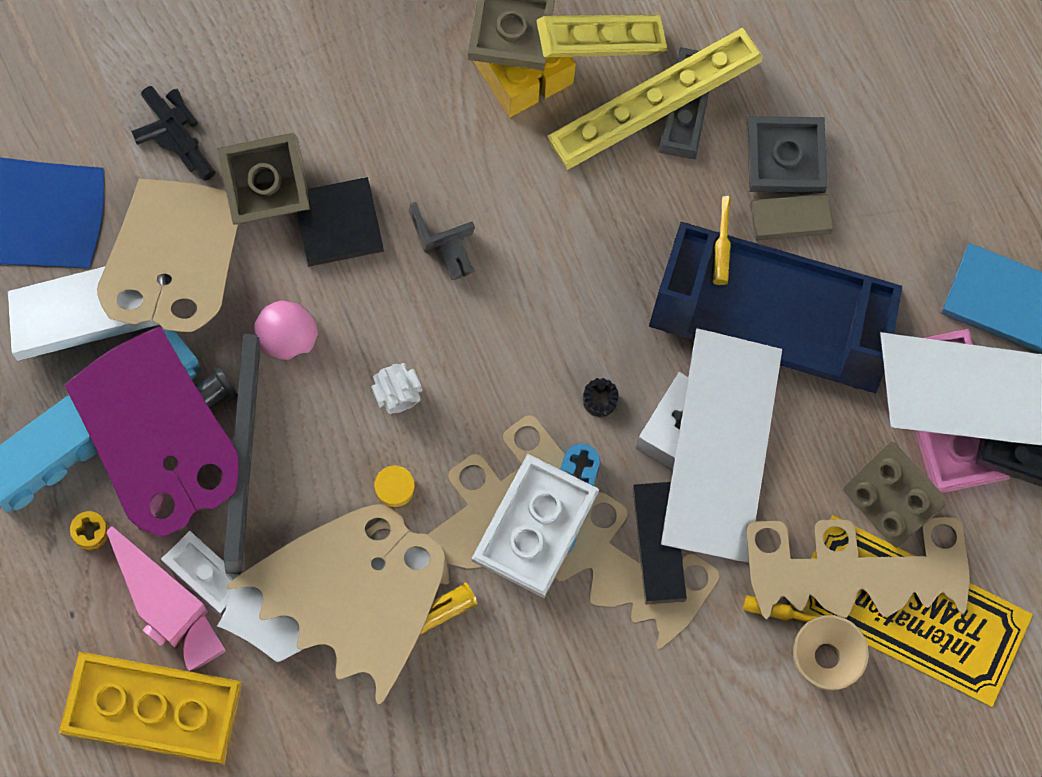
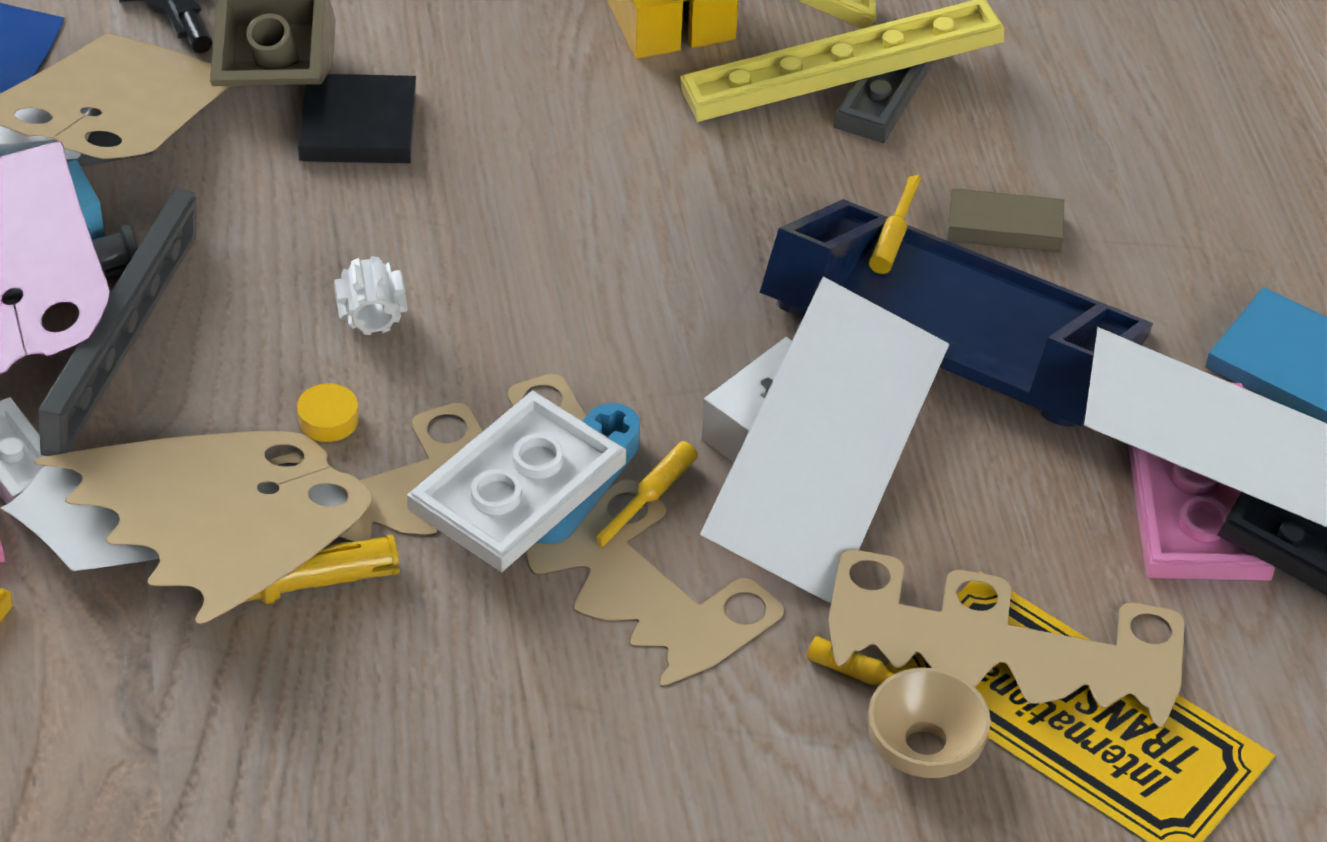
camera: 15 degrees right, 25 degrees down
(286, 330) = (240, 211): bright pink hair -> none
(448, 242) = (502, 155): dark grey bracket -> none
(600, 386) = (671, 356): black bush -> none
(617, 498) = (652, 487): none -> yellow piece
(660, 563) = (695, 566): black tile -> none
(787, 154) = (1015, 149): dark grey plate -> none
(895, 494) = (1084, 543): dark tan bracket -> none

